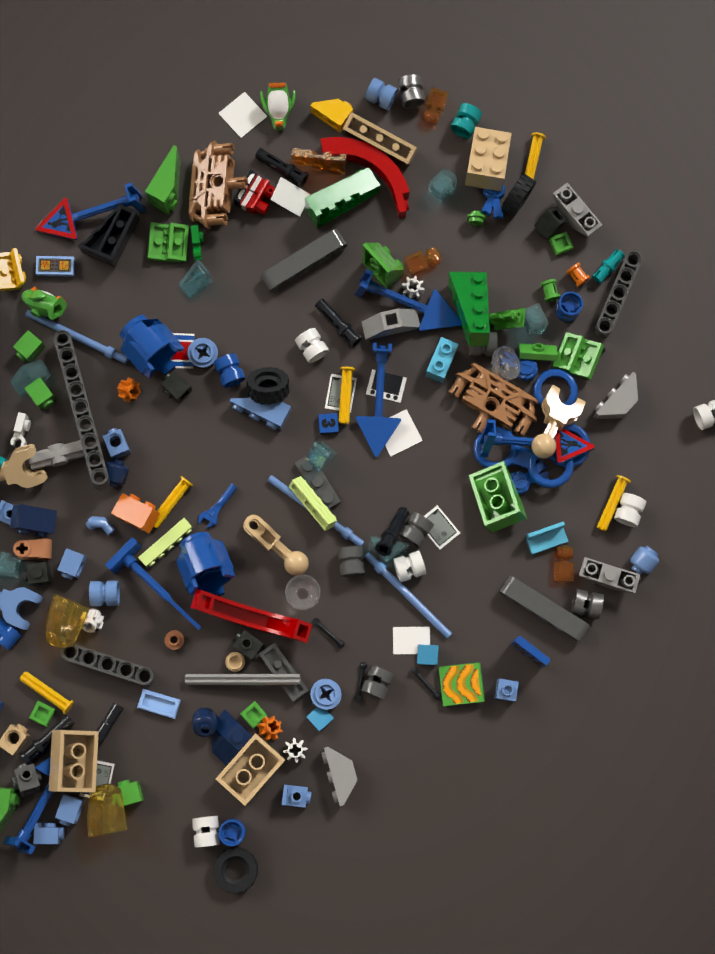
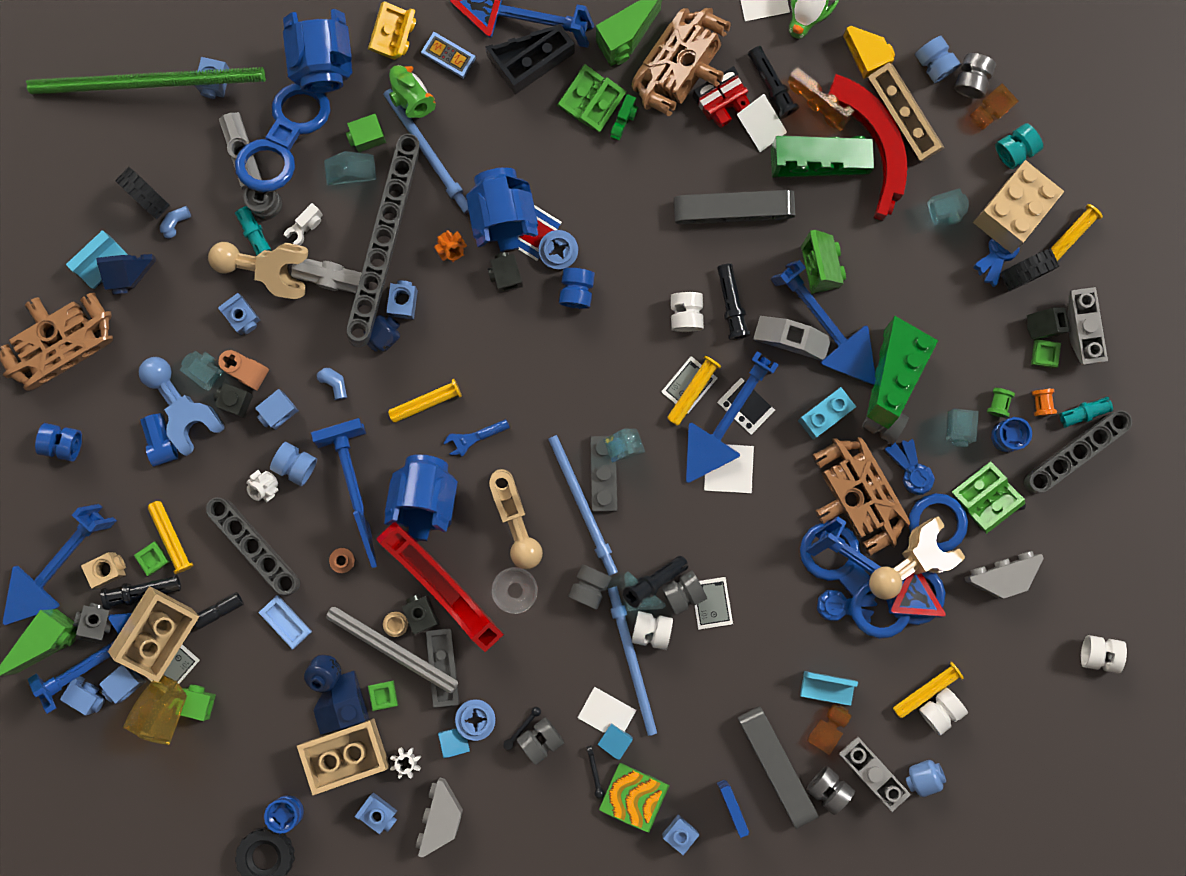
camera: 35 degrees right, 5 degrees up
(33, 519) = (260, 335): dark blue brick -> none
(40, 394) = (349, 195): bright green brick -> none
(64, 621) = (231, 471): clear yellow slope -> none
(135, 512) = (378, 392): brick -> none
(166, 543) = (394, 445): yellowish green piece -> none
(195, 279) = (597, 160): clear light blue slope -> none
(206, 838) = (252, 804): white wheel -> none
(265, 376) = (613, 317): black tyre -> none
(272, 730) = (384, 724): orange gear -> none
(274, 414) = (593, 357): medium blue slope -> none
(313, 503) = (584, 495): yellowish green piece -> none
(316, 622) = (511, 631): black hinge -> none
(328, 423) = (654, 412): blue tile -> none
(414, 283) = (847, 304): white gear -> none
(418, 262) = (865, 283): clear orange plate -> none
(476, 218) = (963, 268): bright green plate -> none
(497, 497) = (798, 609): bright green slope -> none
(507, 319) = (931, 409): bright green hinge -> none
(508, 361) = (902, 460): clear piece -> none
(538, 352) = (944, 466): bright green plate -> none

